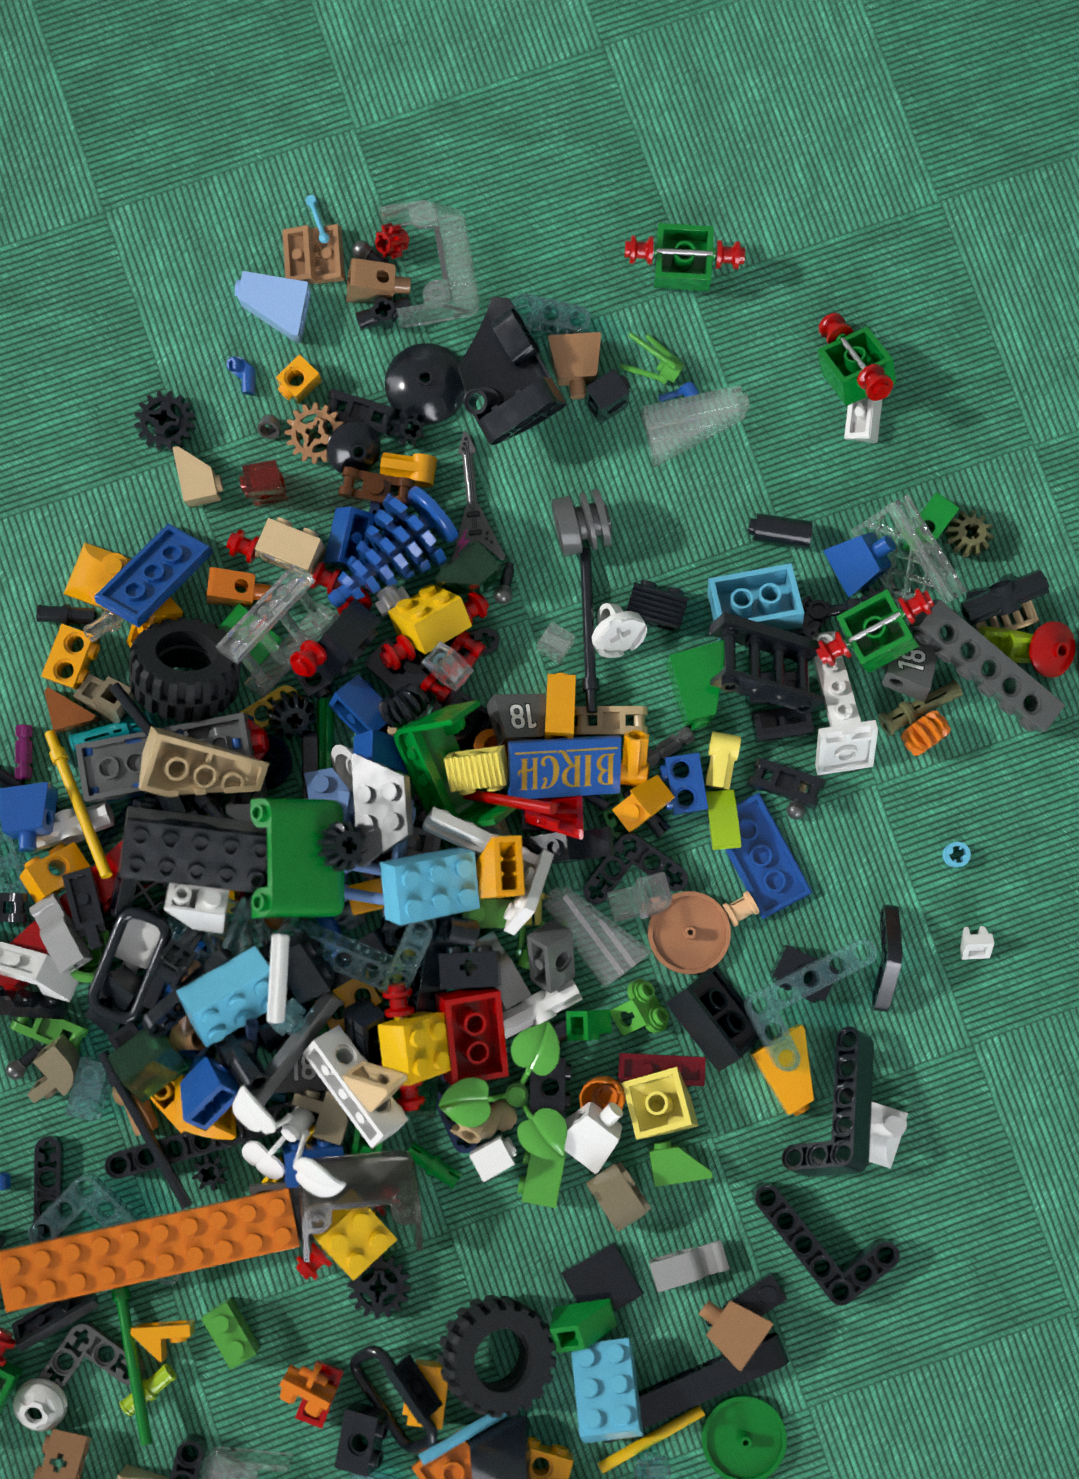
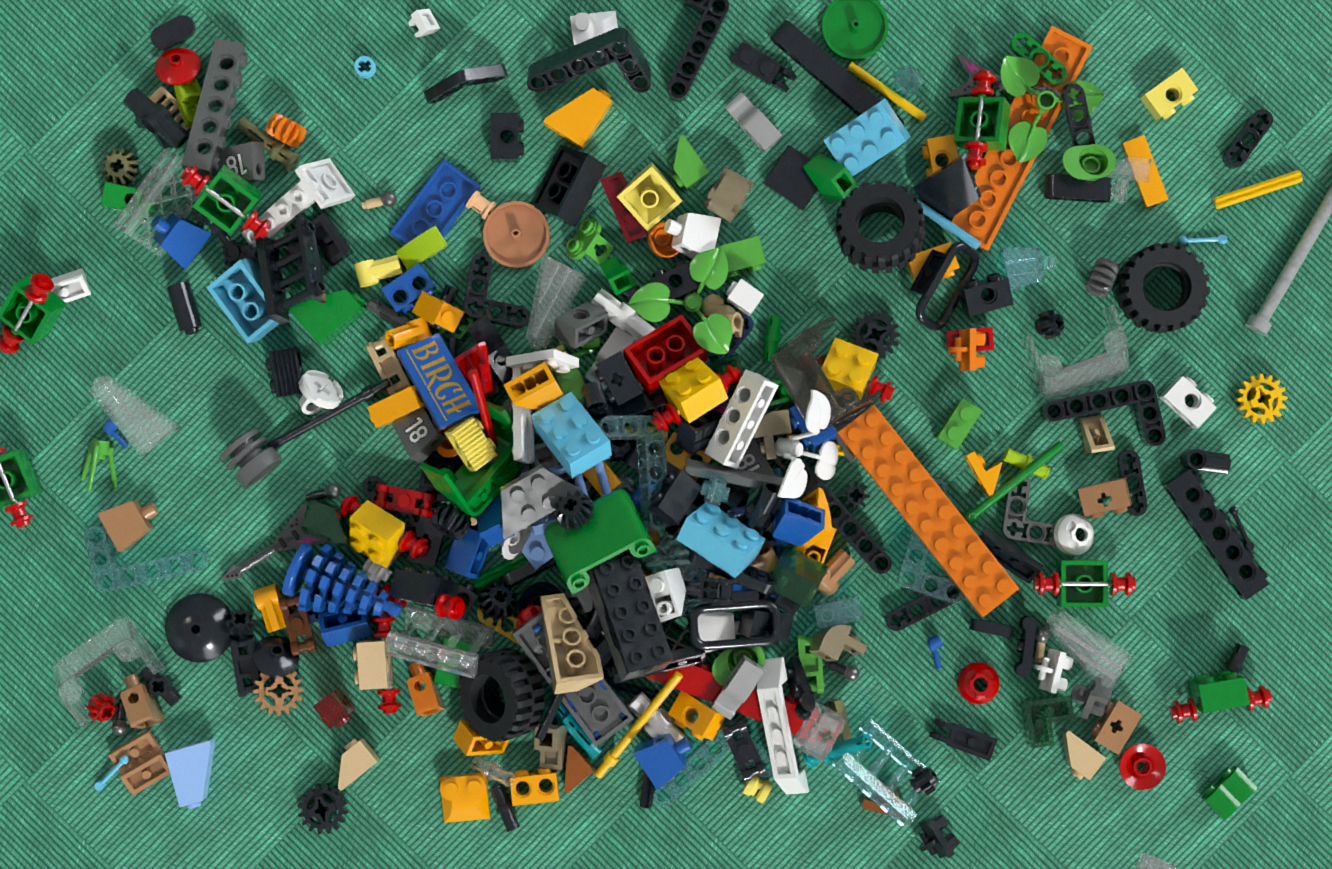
camera: 115 degrees left, 5 degrees up
(23, 751) = (621, 786): magenta axle -> none
(86, 906) = (708, 678): black hinge -> none
(146, 1132) = (821, 593): black bar -> none
(153, 575) = (443, 755): blue tile -> none
(245, 372) = (256, 768): blue arm -> none
(272, 430) = (289, 725): dark grey hinge -> none
(278, 978) = (690, 509): white axle -> none
(300, 368) = (233, 724): light orange brick -> none
(373, 1083) = (731, 405): tan slope -> none
(447, 666) = (406, 502): clear brick -> none
(508, 374) = (163, 567): black panel -> none
(555, 643) = (350, 433): clear brick -> none
(607, 396) = (144, 484): black brick -> none
(643, 900) = (509, 278): clear brick -> none
(735, 1331) = (781, 67): medium nougat torso -> none
(786, 782) = (372, 215): black plate -> none
(799, 991) = (519, 134): clear light blue beam -> none

